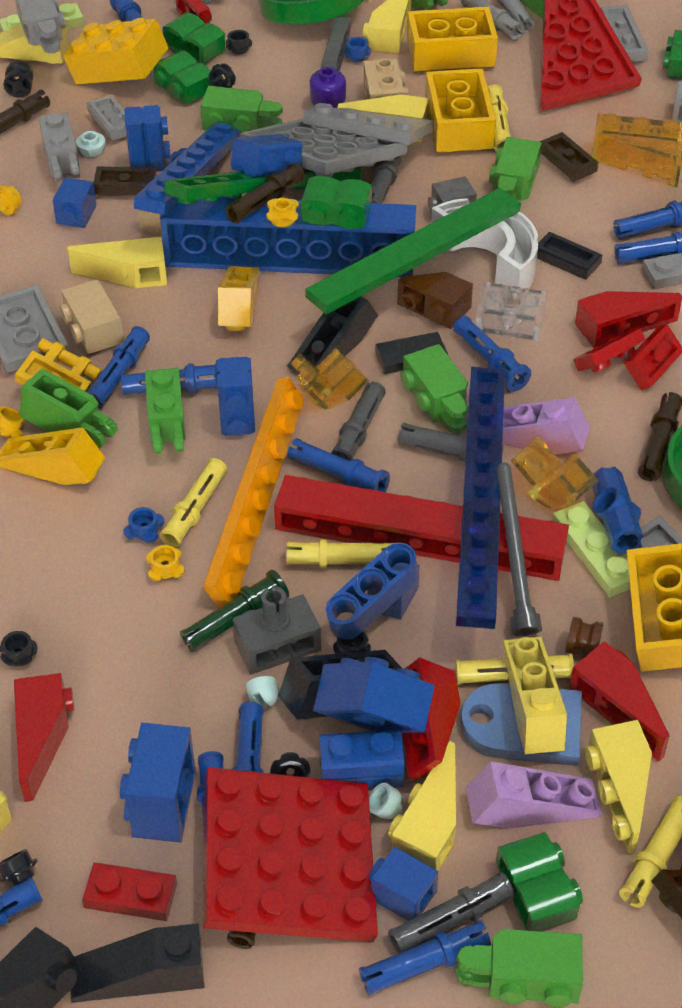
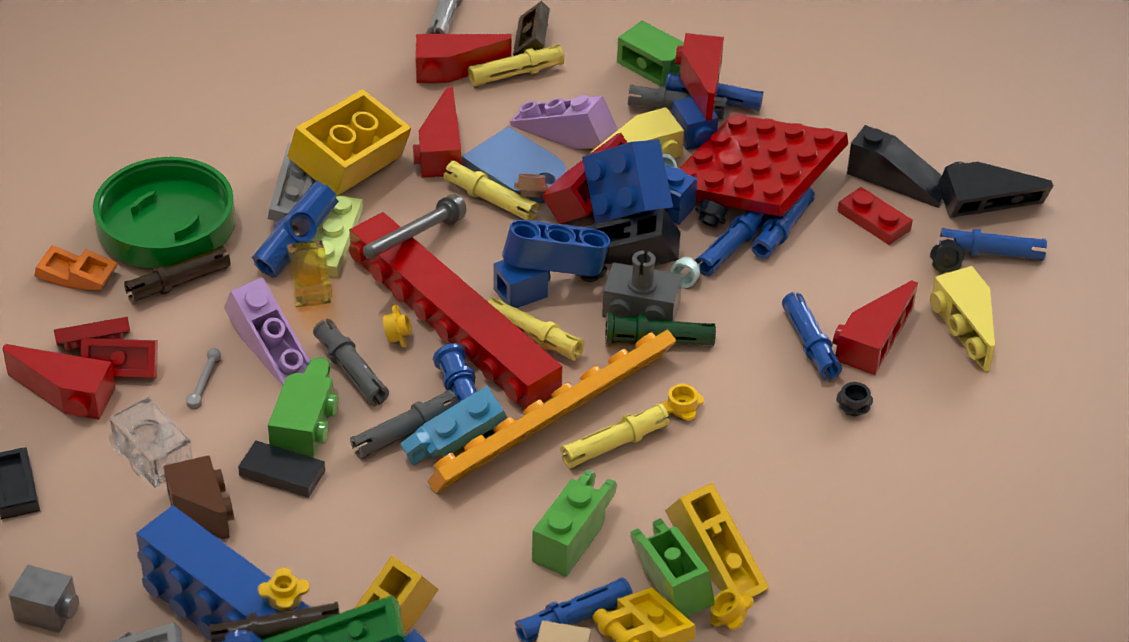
camera: 145 degrees left, 5 degrees down
(87, 683) = (816, 344): none -> blue pin
(132, 382) = (516, 554): blue pin -> none
(143, 524) = (674, 442): blue plate -> none
(159, 782) = (815, 230): blue brick -> none
(235, 395) = (502, 479): blue brick -> none
(313, 428) = (455, 427): none -> dark azure hinge
(331, 381) = (394, 469): clear yellow brick -> none
(336, 202) = (225, 556): green brick -> none
(338, 329) = (334, 512): black slope -> none
(411, 251) = (190, 495): green tile -> none
(433, 910) = (701, 69): none -> red slope
(446, 486) = (397, 326): none -> yellow plate
(469, 331) = (219, 406): blue pin -> none
(481, 501) = (383, 278): clear blue plate -> none
(486, 678) = (531, 185): none -> medium nougat plate
(511, 240) = (59, 497): white brick -> none
(531, 364) = (194, 400): none -> light grey hinge
(535, 696) = (507, 145): light yellow slope -> none
(540, 885) = (611, 79): green brick -> none
(583, 636) = (422, 178): reddish brown wheel -> none
(622, 766) = (490, 101): light yellow slope -> none

